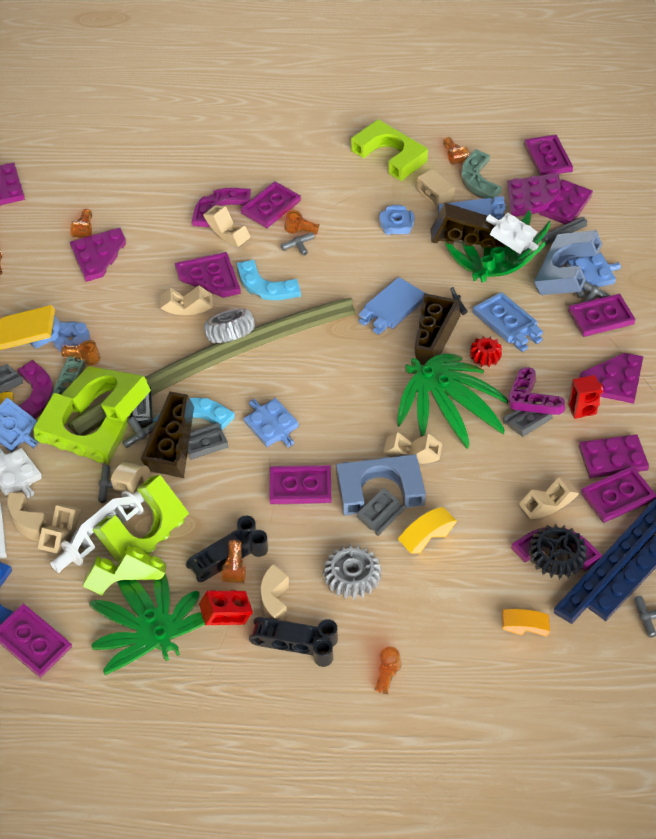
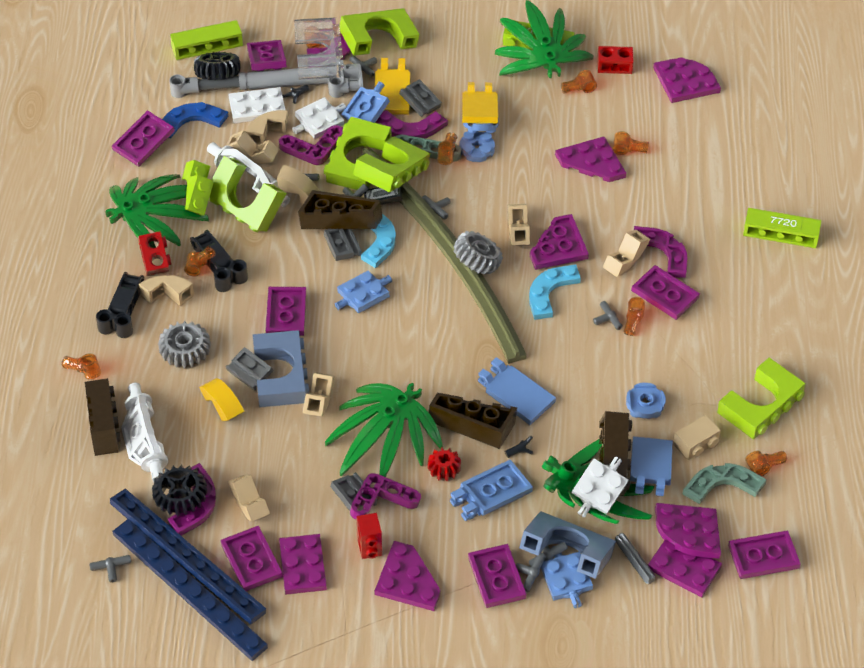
camera: 90 degrees right, 0 degrees up
(62, 475) = (291, 145): none -> magenta beam
(155, 367) = (437, 206): none -> dark grey piece
(195, 130) = (782, 227): none -> lime brick
(463, 638) = (101, 417): none -> dark brown wedge
(480, 597) = (139, 434): none -> white plate
(521, 620) = (115, 467): light orange slope -> none

